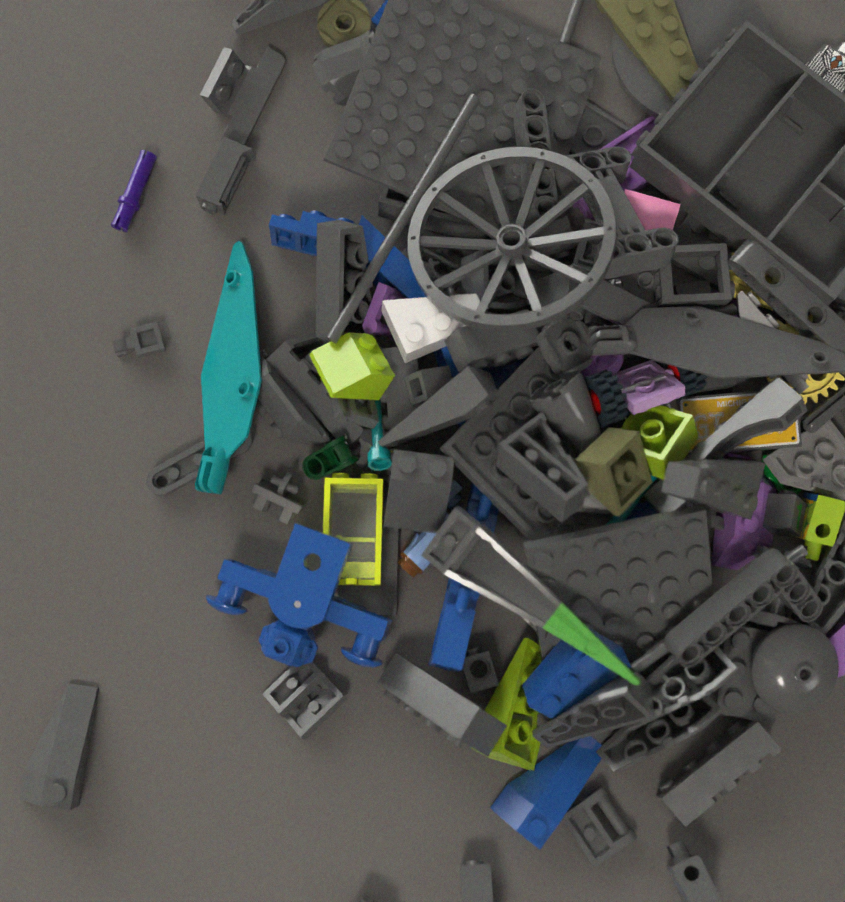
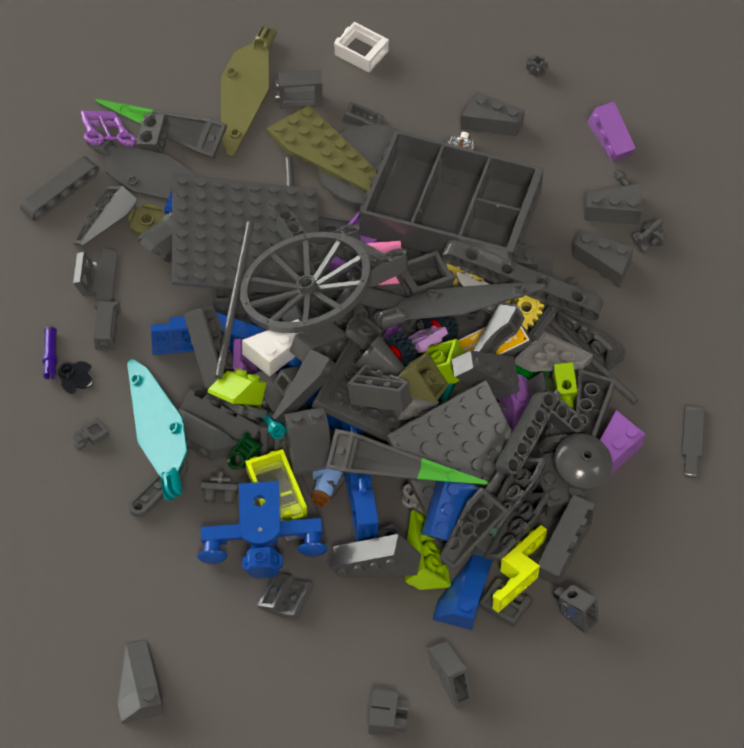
camera: 20 degrees left, 25 degrees down
(157, 243) = (76, 378): none -> black plate
(636, 793) = (519, 568): none -> neon yellow bracket

